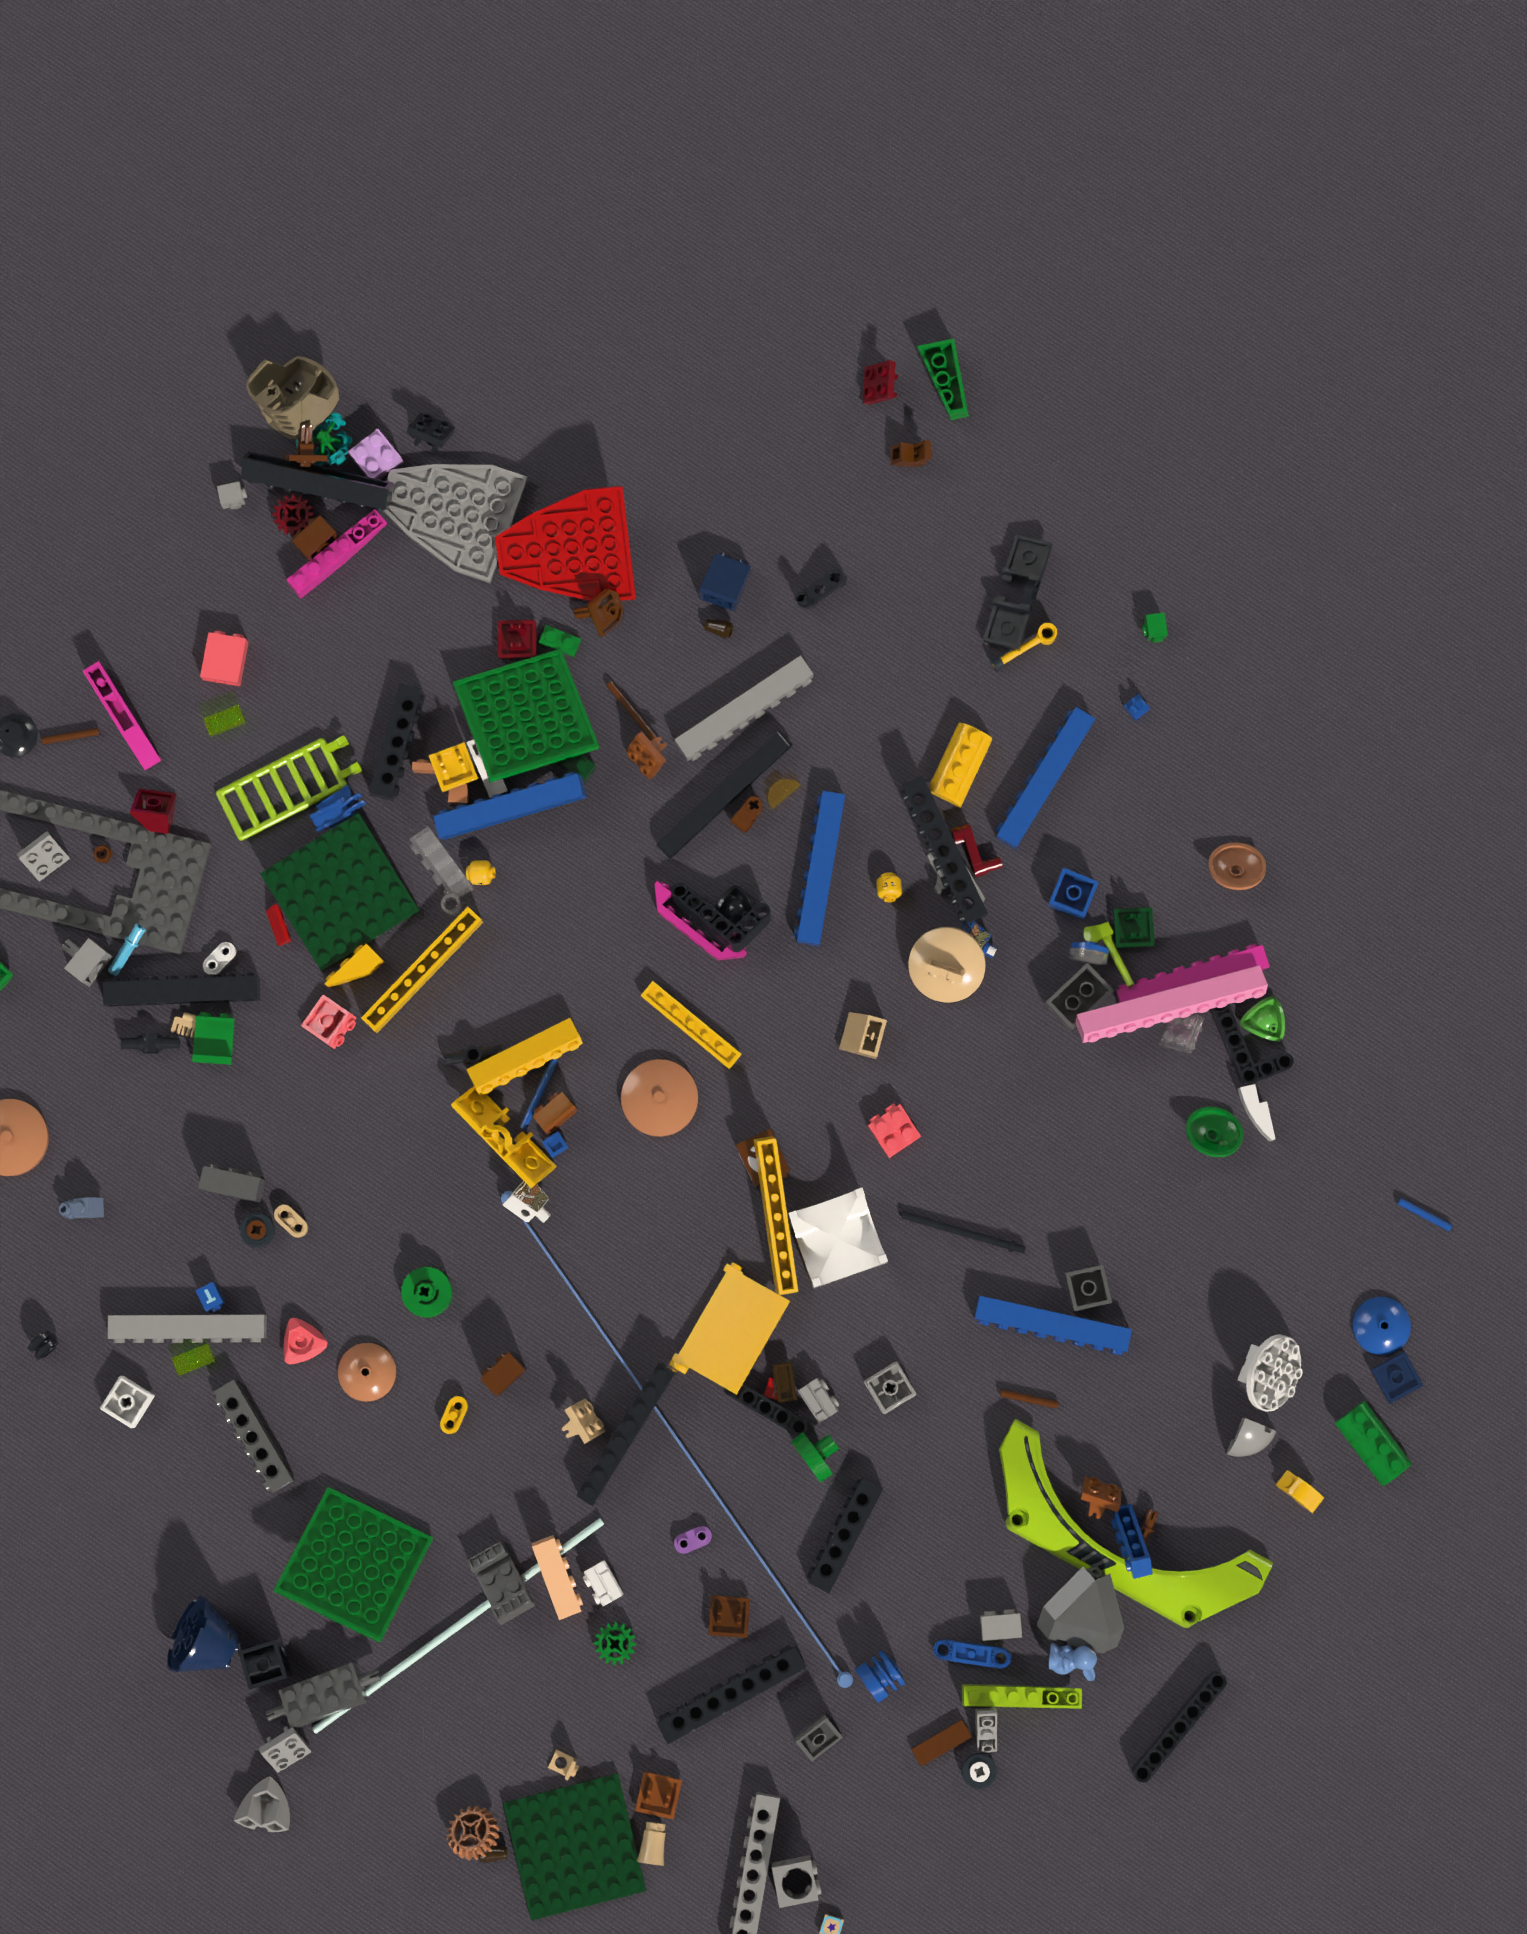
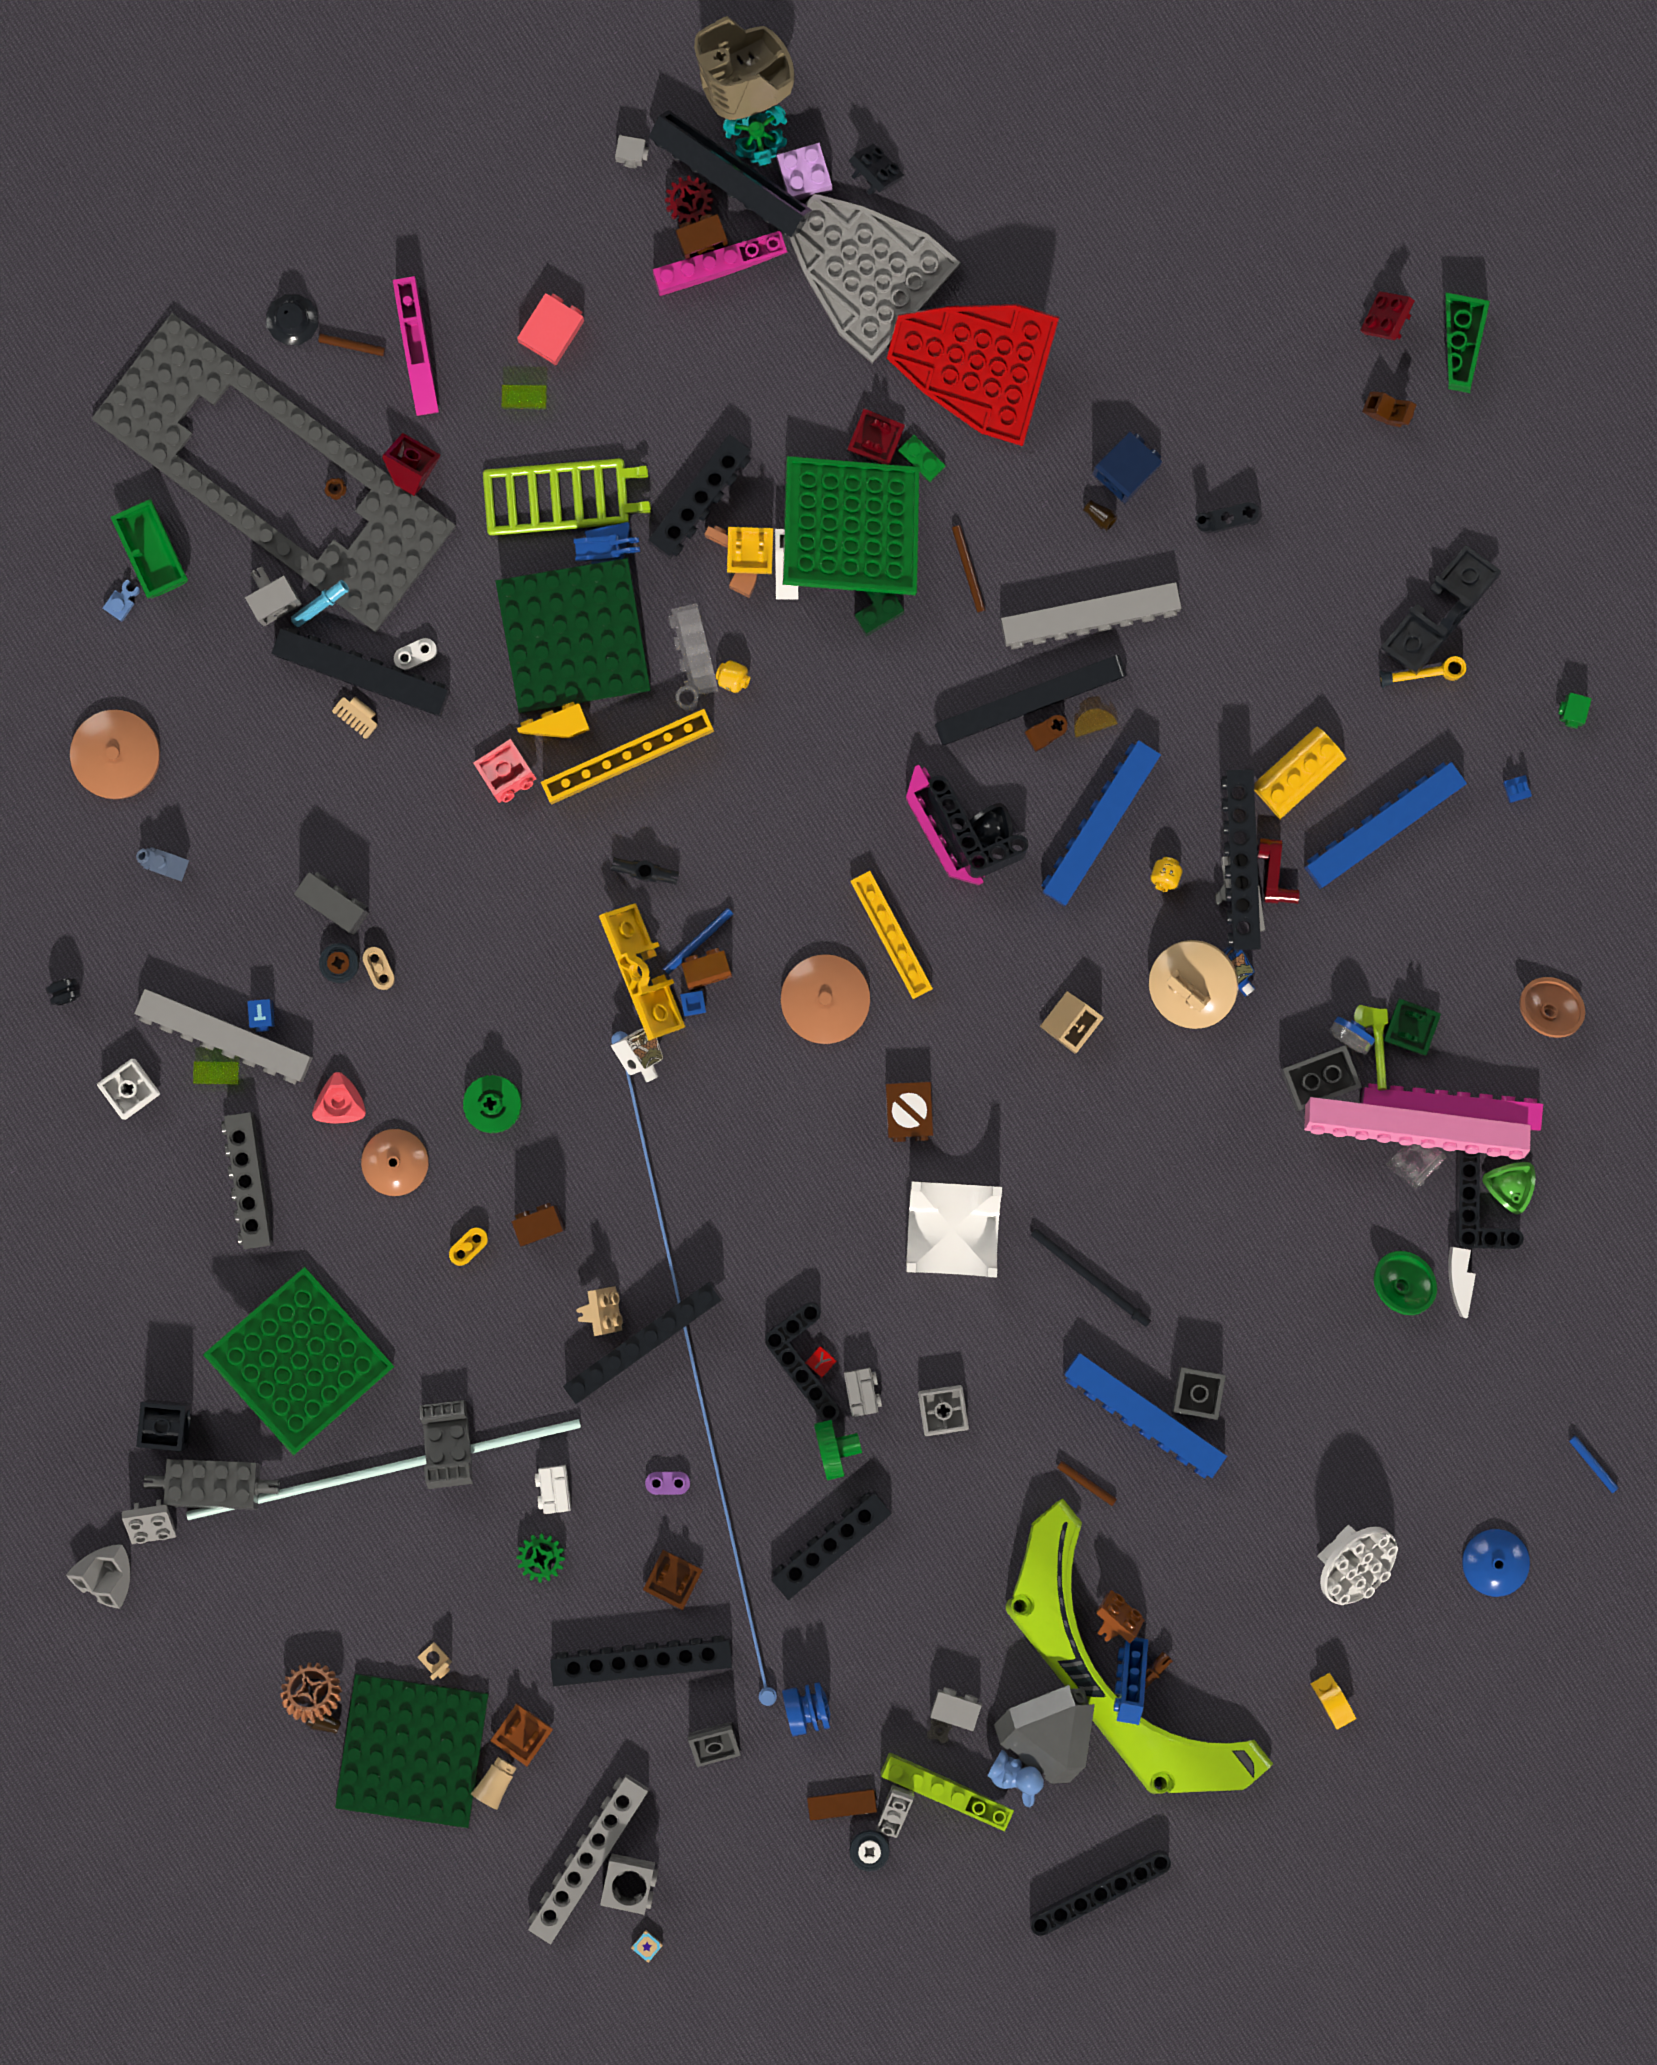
camera: 25 degrees right, 5 degrees up
(43, 856) = (270, 465): light grey plate -> none
(150, 1043) = (305, 715): black pin -> none
(202, 1639) = (107, 1373): dark blue cone -> none
(213, 1039) = (374, 738): green panel -> none
(278, 925) = (493, 643): red slope -> none
(305, 452) = (731, 134): reddish brown piece -> none
(510, 806) = (794, 618): blue brick -> none
(524, 1056) = (699, 895): yellow brick -> none
(556, 1577) = (507, 1463): light nougat brick -> none
(604, 611) = (983, 445): reddish brown piece -> none
(647, 754) = (964, 622): dark orange plate -> none
(731, 1330) = (799, 1279): yellow door -> none
(775, 1215) = (897, 1177): yellow brick -> none
(784, 1382) = (833, 1358): dark brown tile -> none
(893, 1130) = (1062, 1137): coral plate -> none
(972, 1653) = (913, 1725): blue plate -> none
(1073, 893) = (1362, 963): blue brick -> none
(1250, 1439) = (1304, 1624): light grey brick -> none
(1373, 1443) = (1433, 1683): green container -> none
(1396, 1377) = (1488, 1624): dark blue plate -> none

